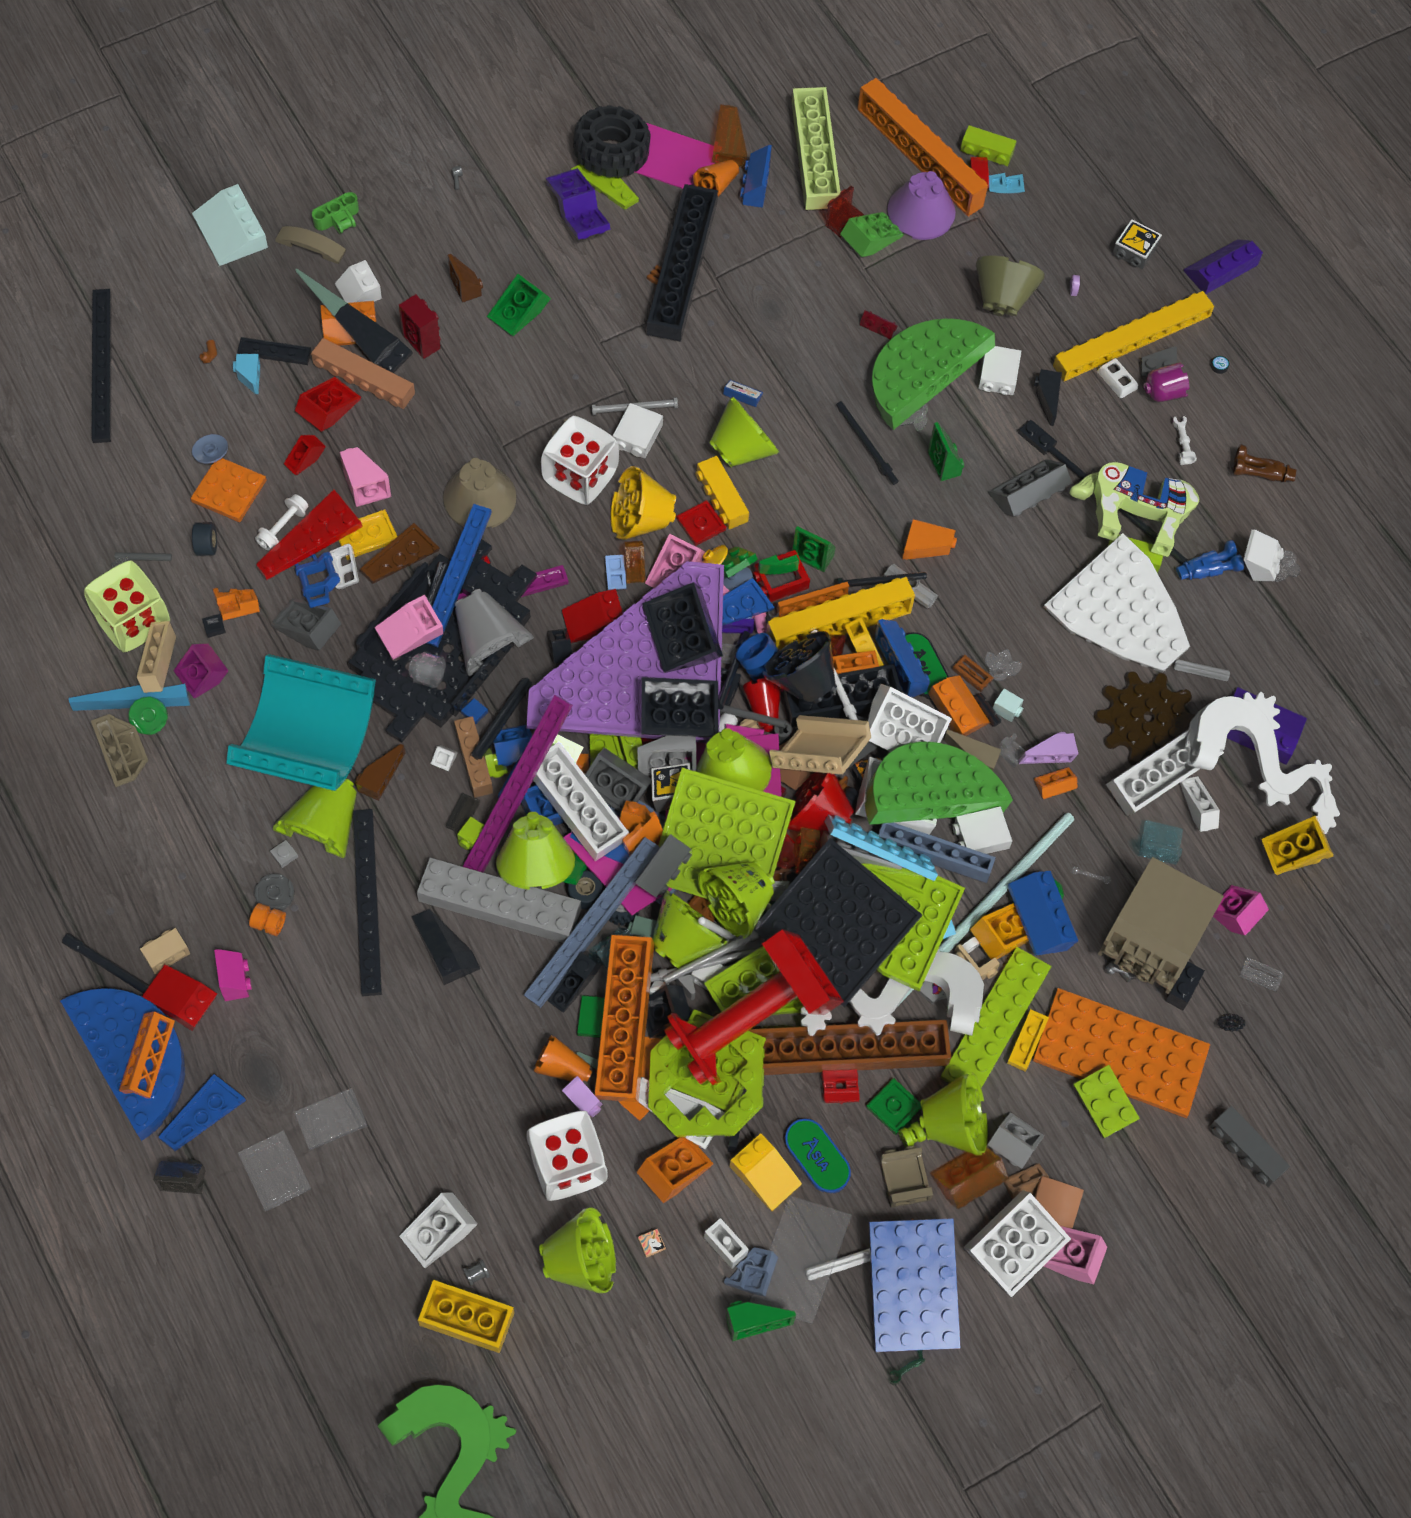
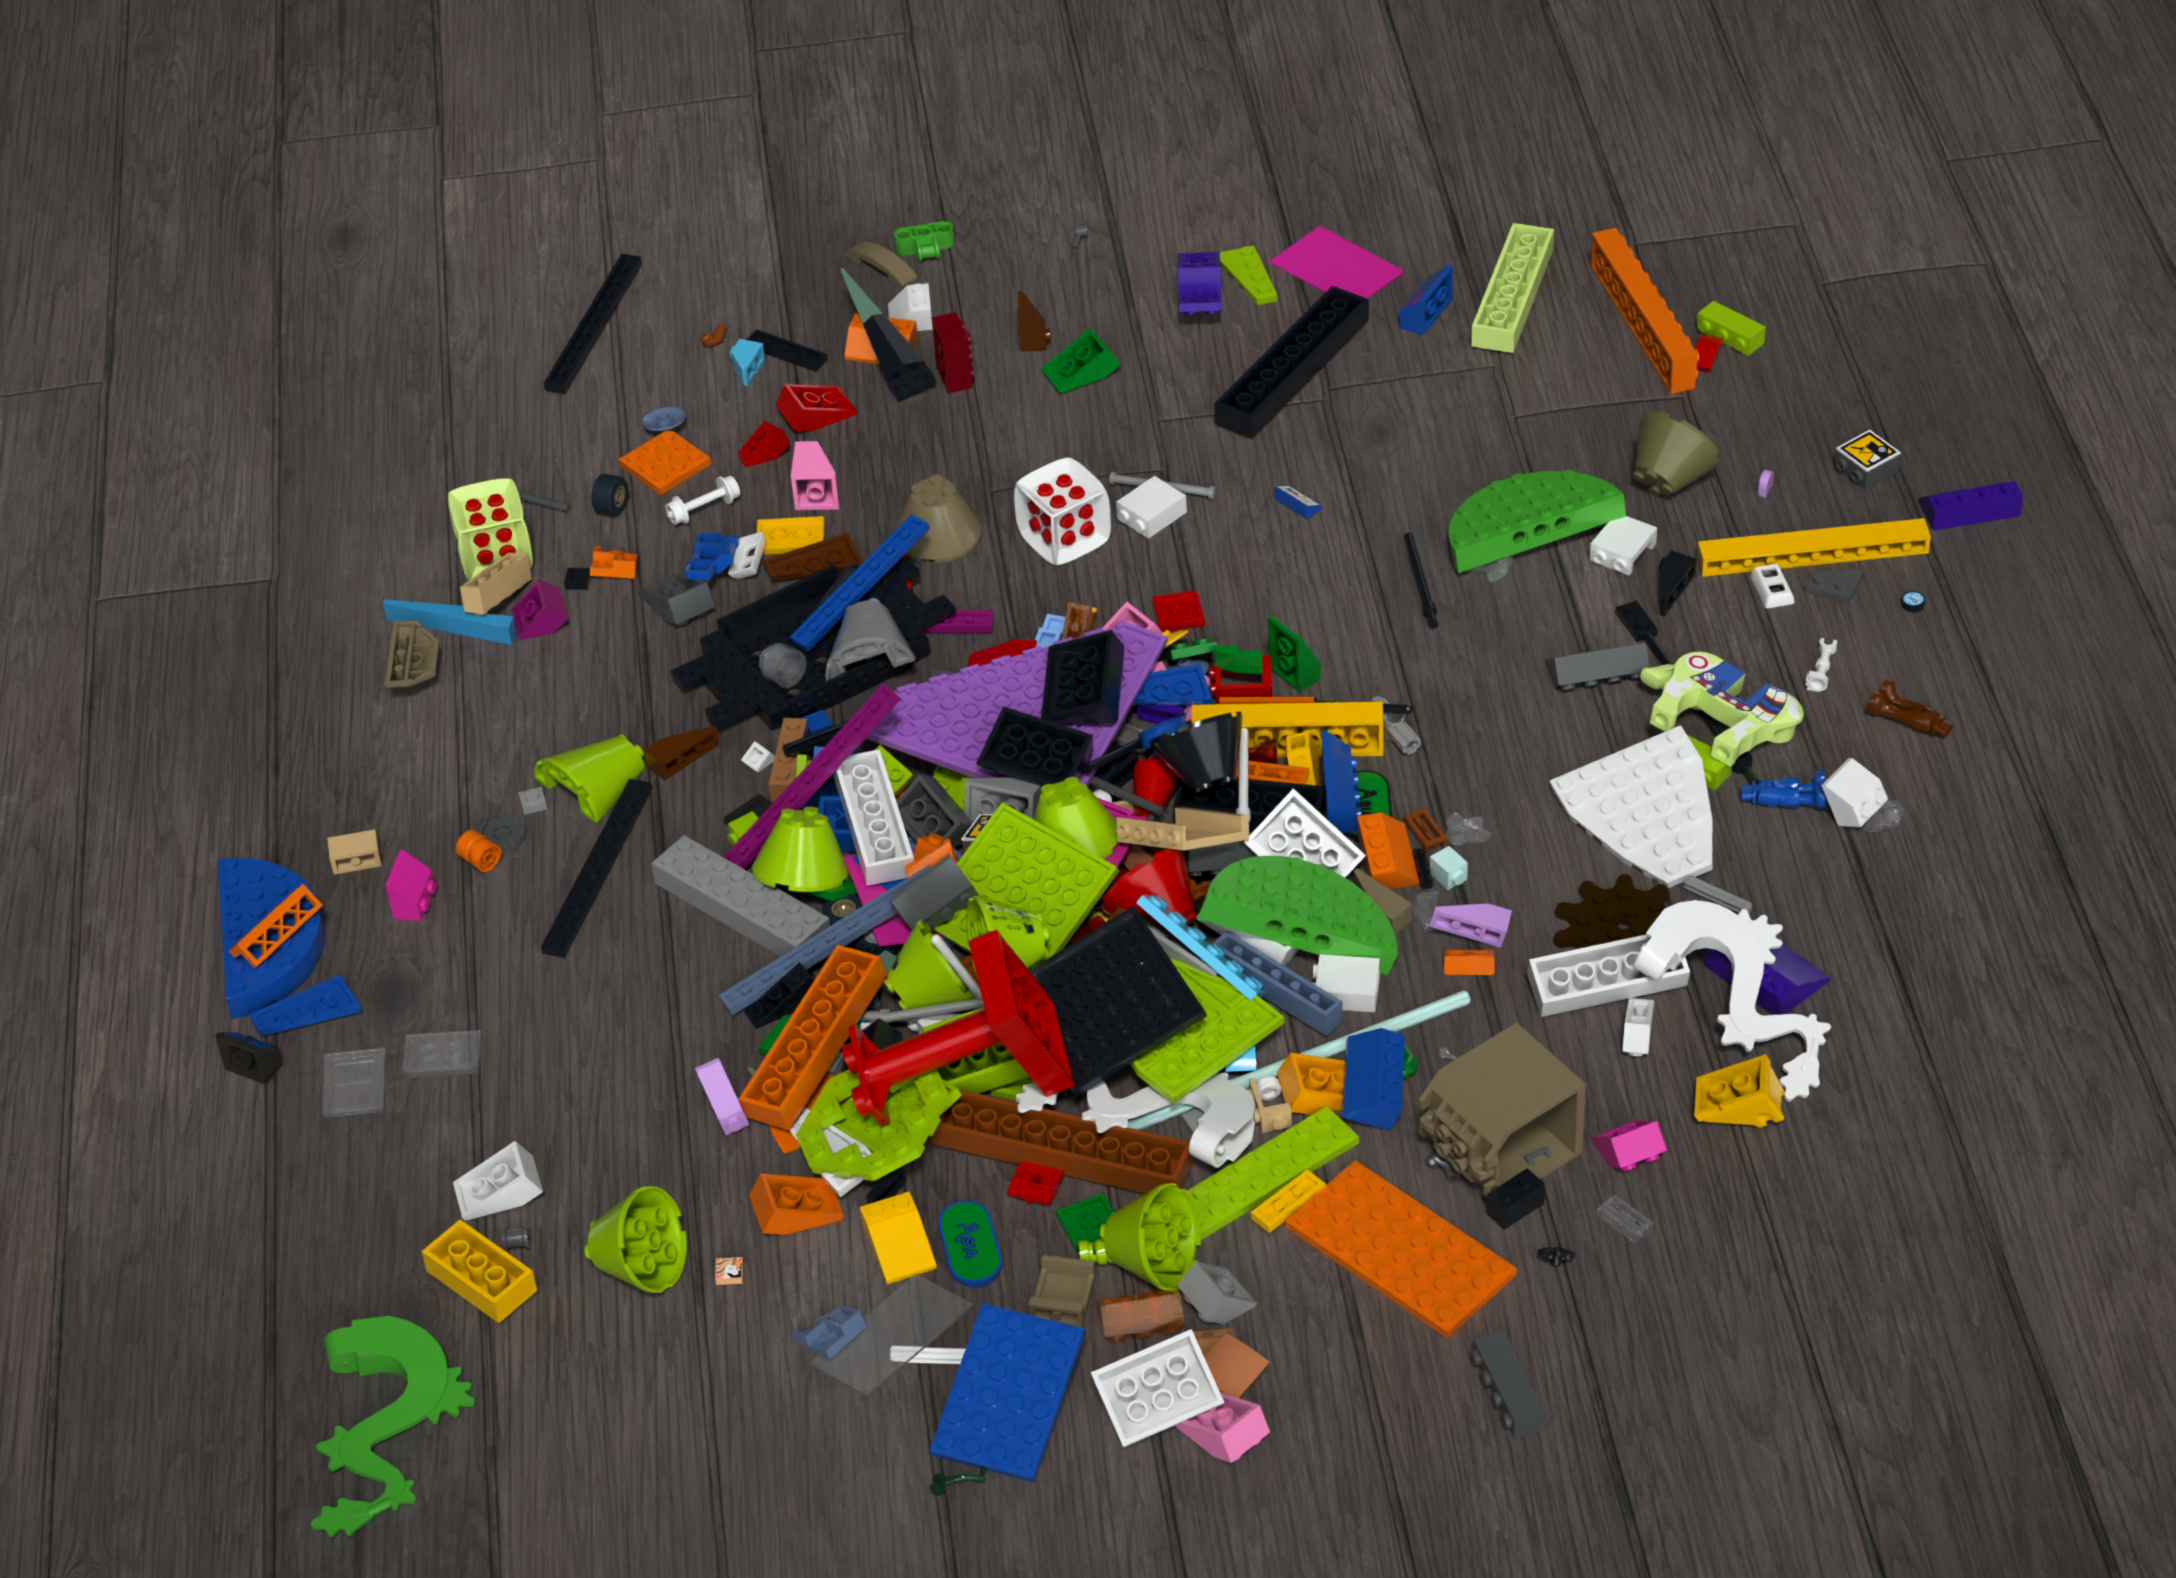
camera: 30 degrees right, 20 degrees down
(78, 946) = (317, 885): black piece -> none
(148, 715) = (459, 637): green tile -> none
(180, 996) = (347, 896): red slope -> none
(230, 226) = (801, 229): light aqua slope -> none
(306, 723) = (627, 682): teal panel -> none
(319, 529) = (743, 515): red wing -> none
(363, 373) = (870, 388): nougat brick -> none
(409, 627) = (781, 616): bright pink slope -> none
(447, 951) = (656, 933): black wedge -> none
(561, 1062) = (719, 1046): orange cone -> none
(567, 1155) = (674, 1143): white piece -> none
(609, 158) = (1270, 232): black tyre -> none
(640, 505) = (1114, 571): yellow cone -> none
(688, 986) = (908, 1029): light grey slope -> none
(716, 176) = (1380, 289): orange cone -> none
(722, 492) = (1218, 586): yellow brick -> none
(726, 1243) = (810, 1288): white brick -> none
(729, 137) = (1413, 259): clear orange slope -> none
(740, 437) = (1262, 531): lime cone -> none
(754, 1319) = (803, 1370): green slope -> none
(841, 210) = (1511, 352): clear red bracket -> none
(870, 233) = (1536, 381): bright green slope -> none
(878, 324) = (1494, 467): dark red hinge -> none
(922, 207) = (1615, 367): medium lavender cone -> none
(928, 541) = (1439, 687): orange slope -> none
(944, 454) = (1506, 604): green slope -> none
(1001, 184) = (1729, 369): medium azure slope -> none
(1106, 1101) = (1350, 1286): lime plate -> none
(1161, 842) = (1571, 1048): clear light blue bracket -> none
(1167, 383) = (1825, 598): magenta cylinder -> none

